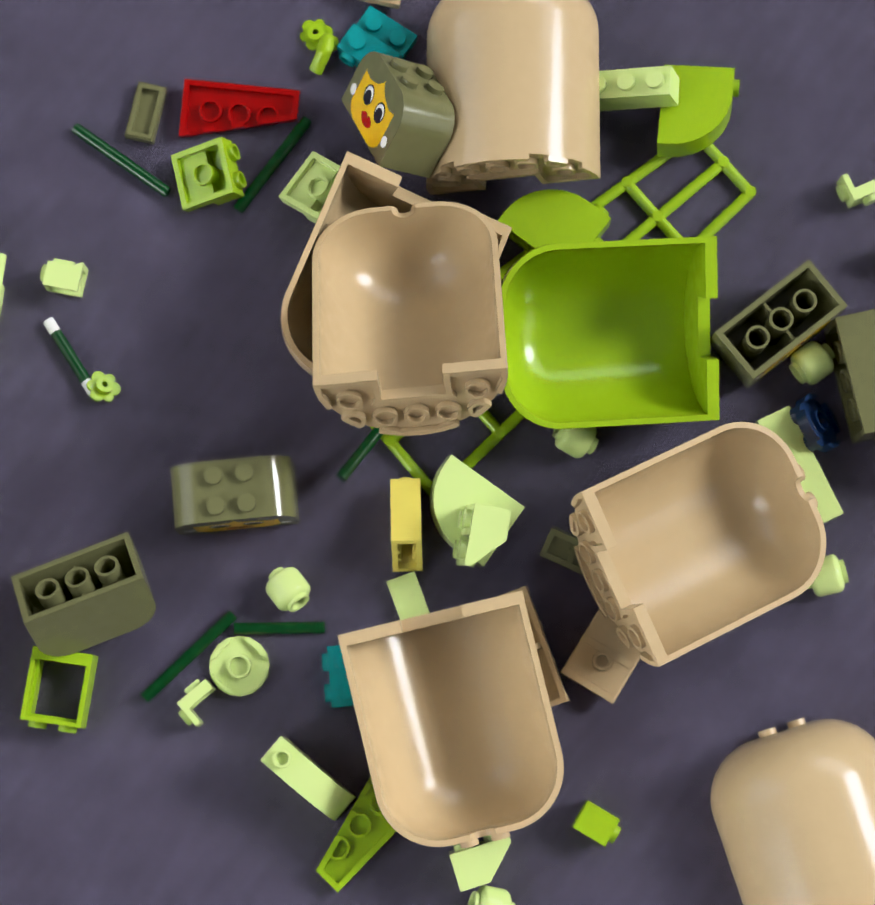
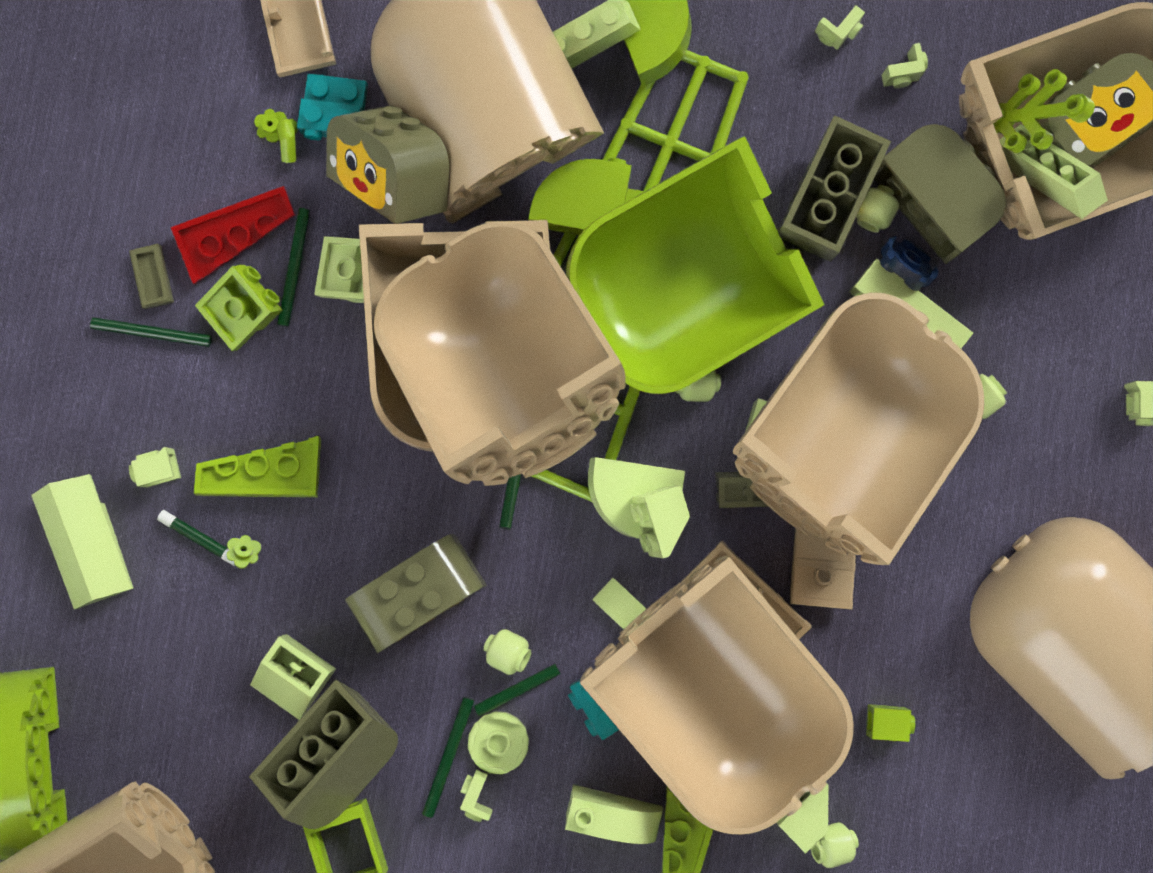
camera: 25 degrees left, 5 degrees up
(89, 513) = (291, 675): none -> yellowish green slope
(165, 332) = (272, 472): none -> lime wing
(406, 524) = (584, 539): light yellow slope -> none

